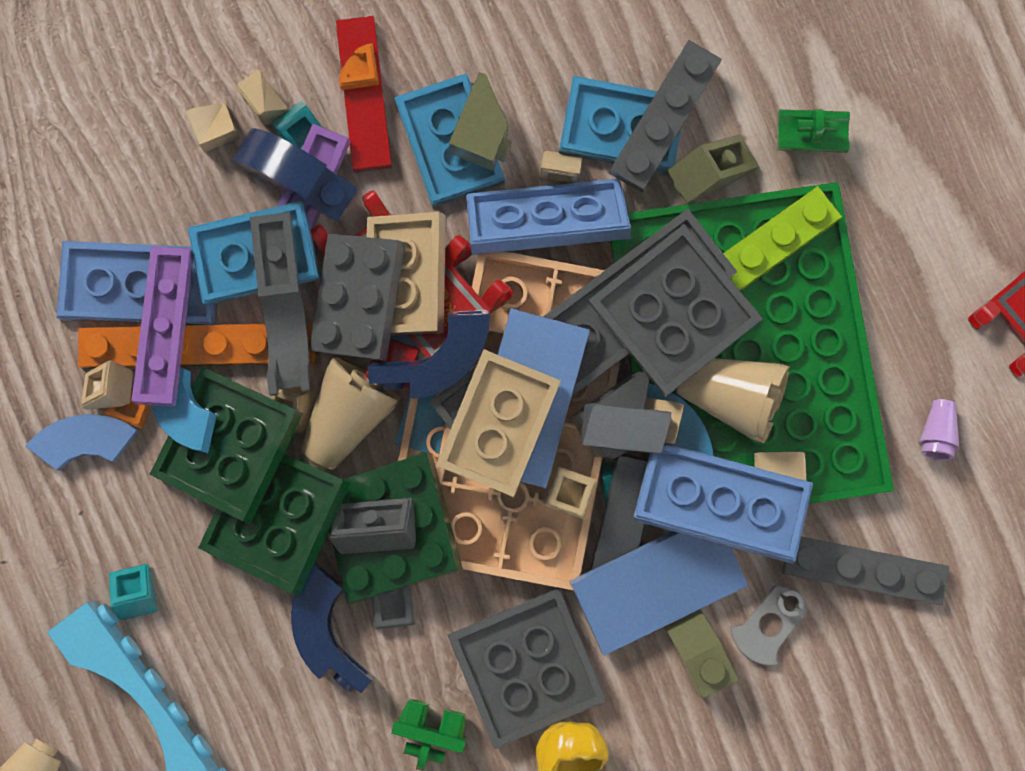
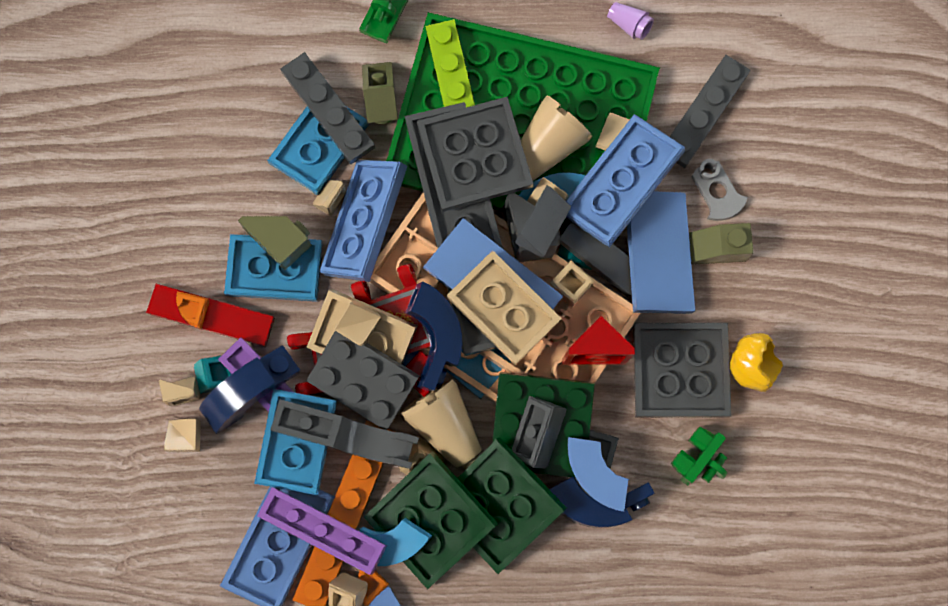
camera: 65 degrees left, 5 degrees down
(350, 614) = (594, 474): none -> medium blue tile
(412, 261) = (357, 322): none -> tan slope
(504, 554) = (599, 346): none -> red slope

